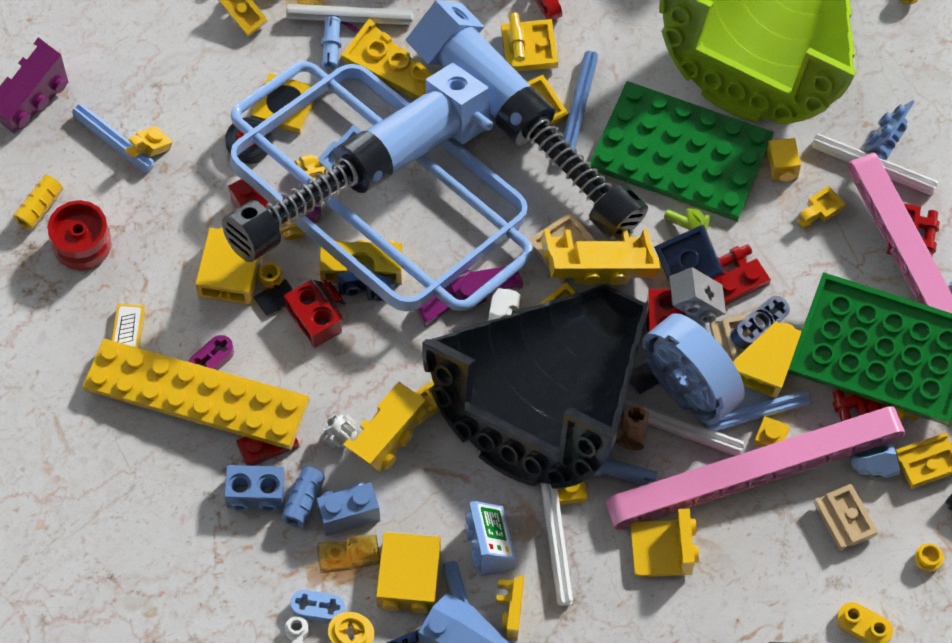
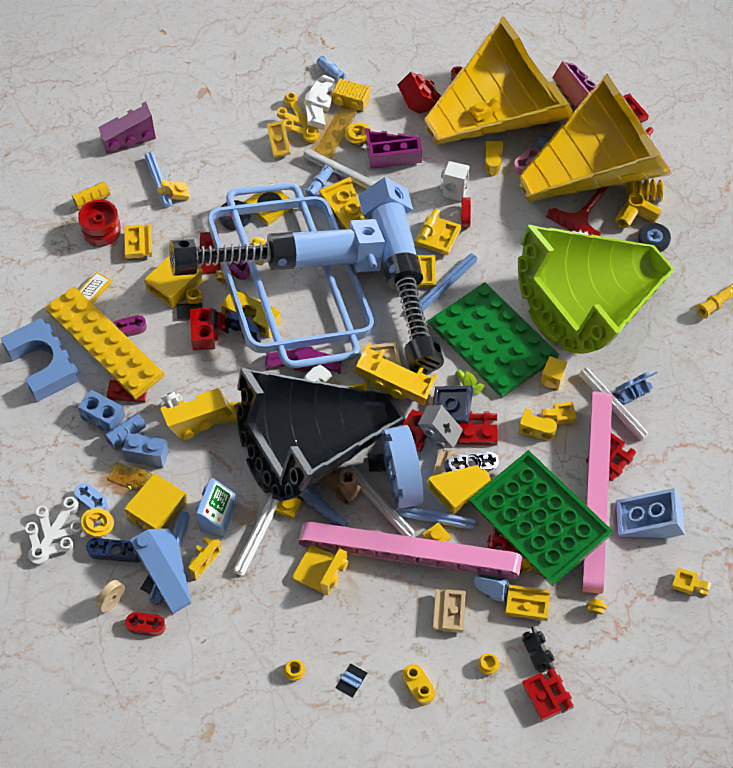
camera: 30 degrees right, 5 degrees down
(103, 429) = (39, 337): none -> medium blue arch
(145, 236) = (138, 241): none -> yellow plate
(804, 237) = (536, 426): none -> yellow leg

